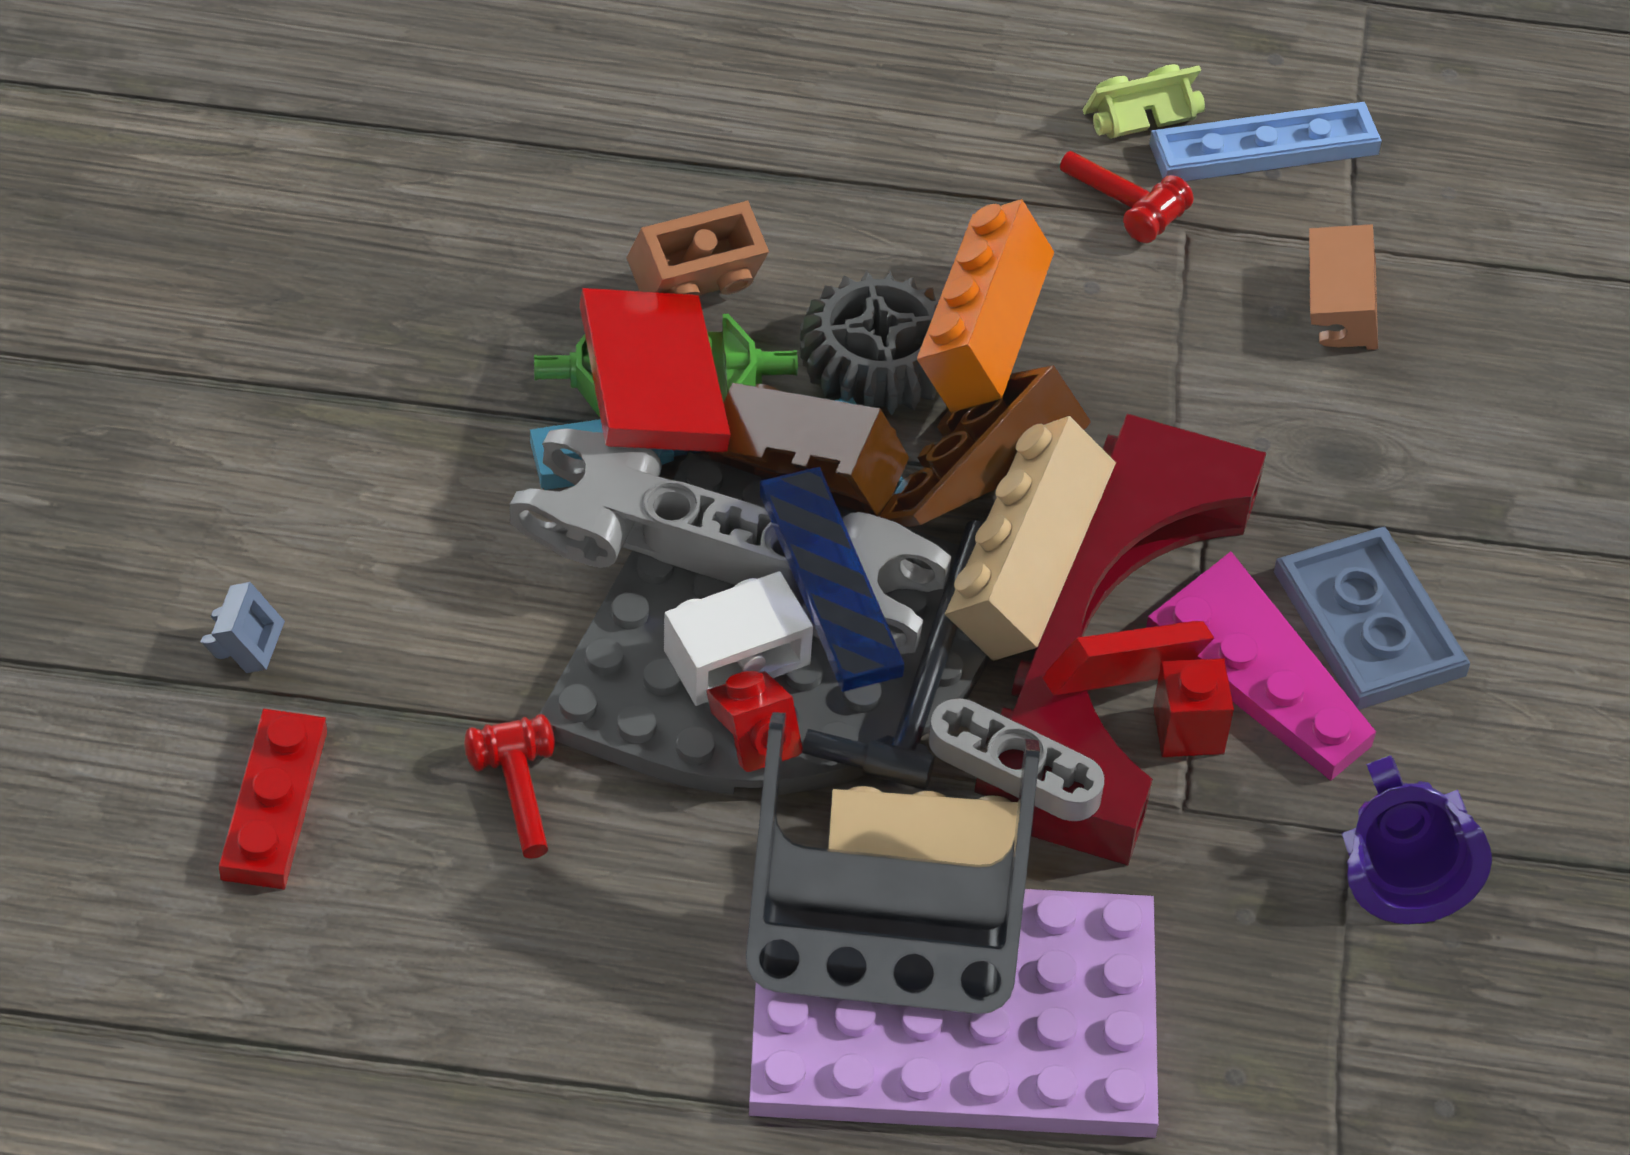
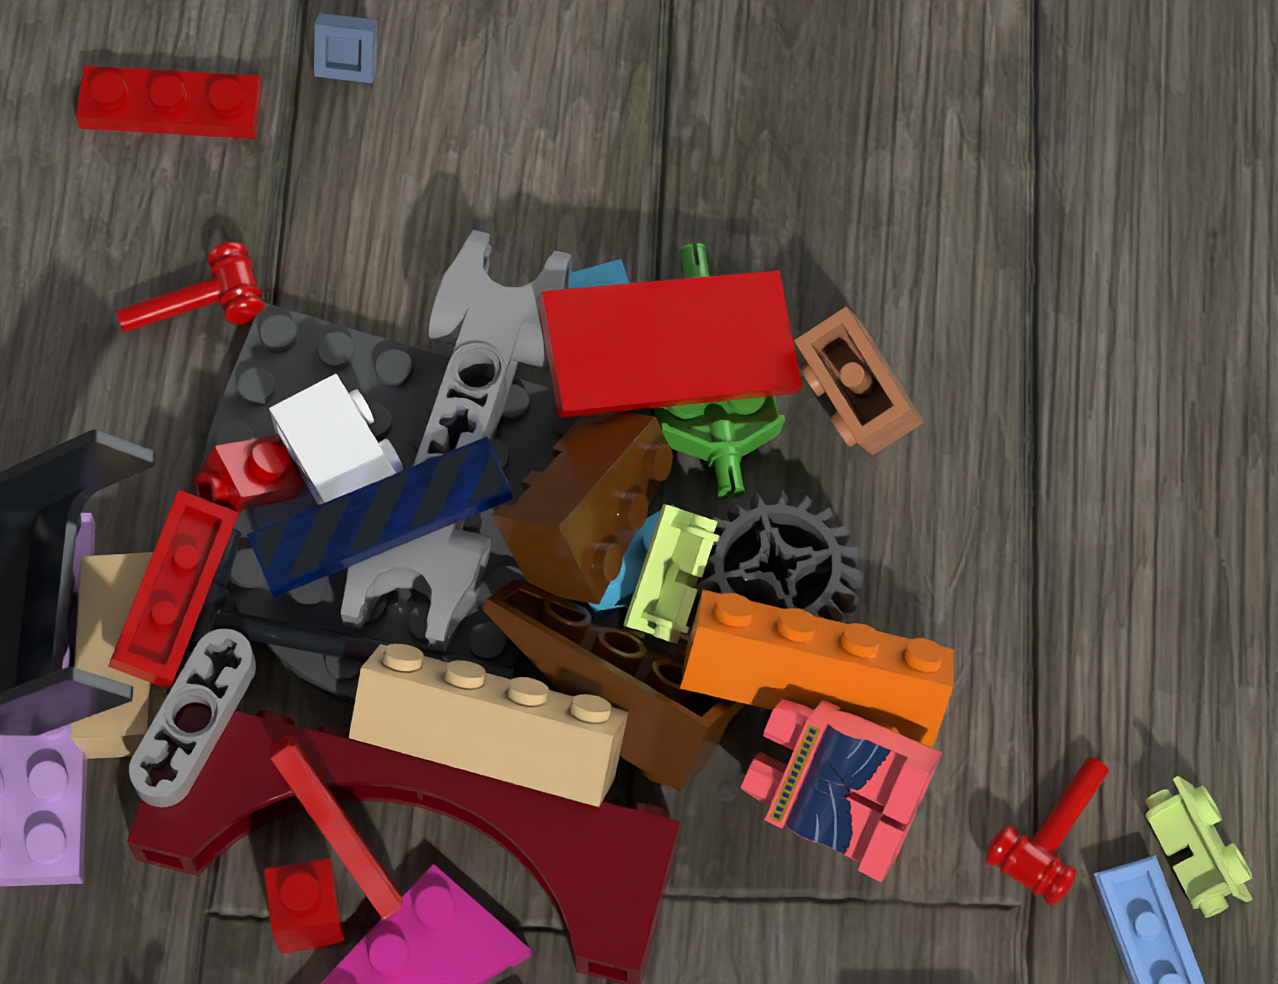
camera: 90 degrees right, 15 degrees up
(864, 384) = (670, 572): none -> yellowish green hinge
(884, 761) = (173, 590): none -> red plate
(1096, 297) = (844, 782): none -> coral hips

